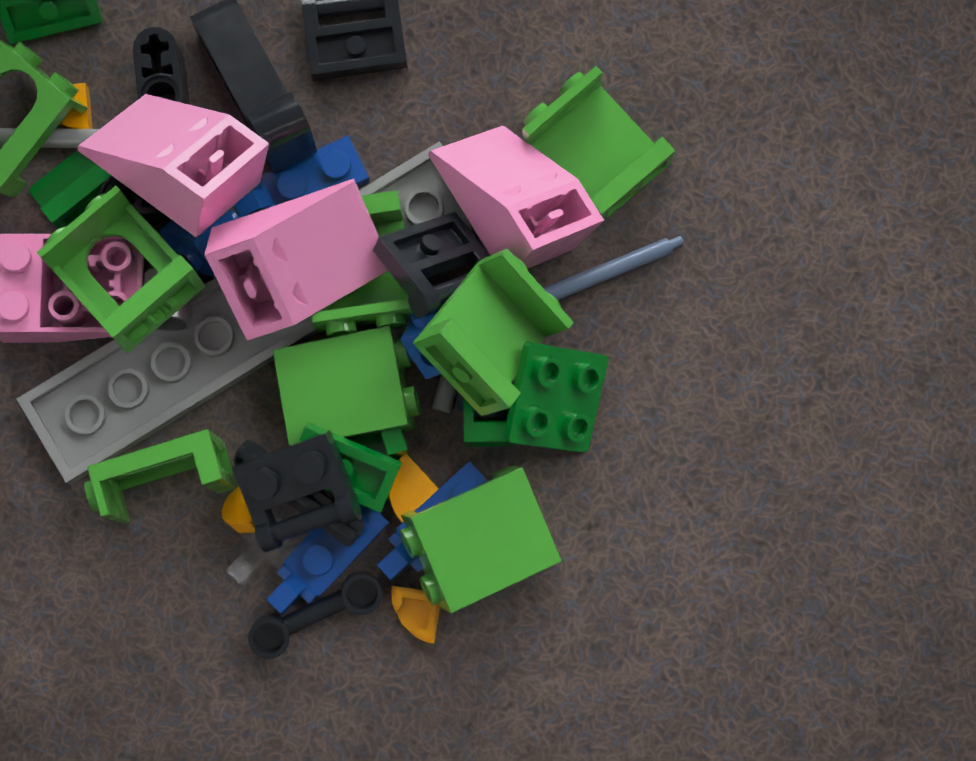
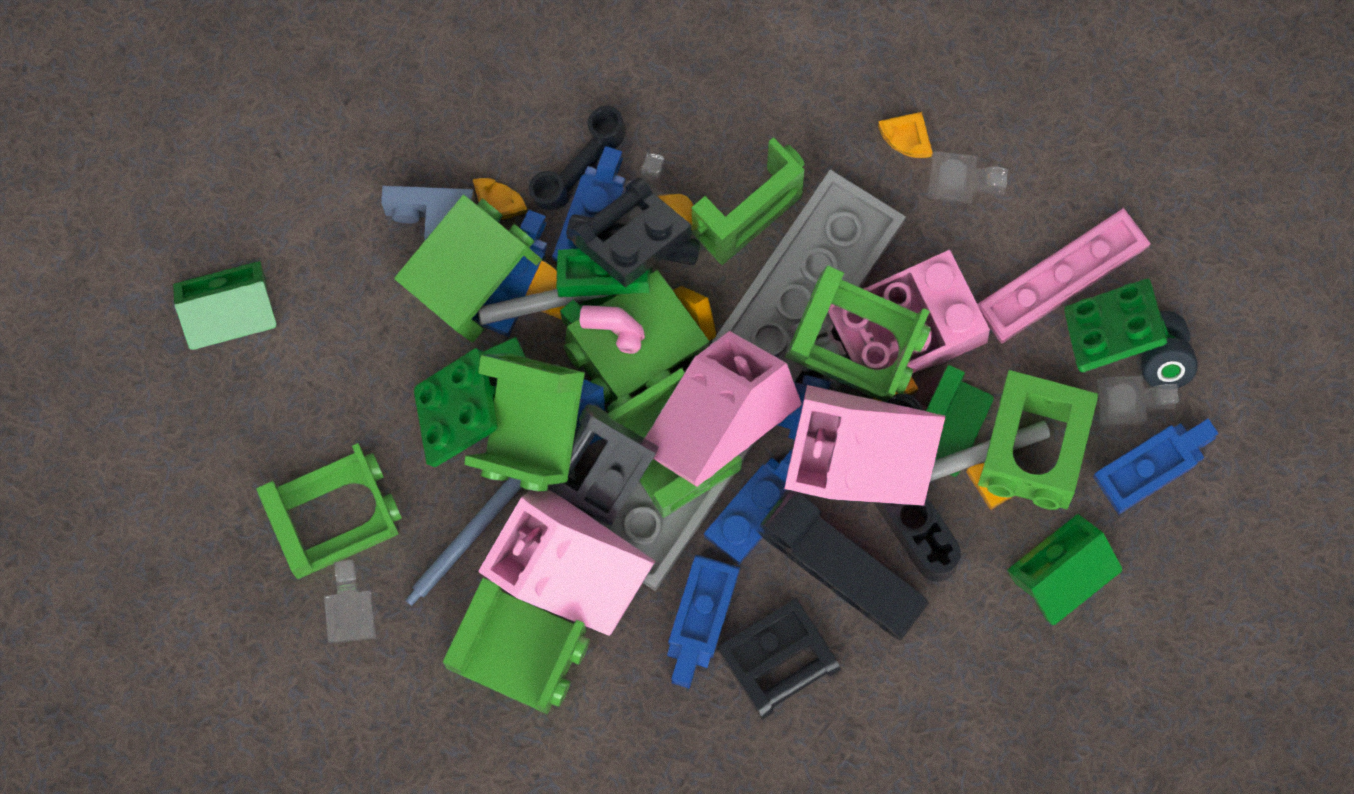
camera: 155 degrees right, 5 degrees down
(269, 401) = (699, 309): none -> light orange tile
(358, 403) = (618, 321): none -> bright pink arm
(408, 99) = (700, 616): none -> blue hinge
(441, 475) = (526, 305): none -> light grey bar
(479, 623) = (410, 203): none -> sand blue slope
(744, 251) = (349, 612): none -> clear plate
(746, 625) = (224, 305): none -> panel
(769, 322) = (348, 470): none -> bright green panel

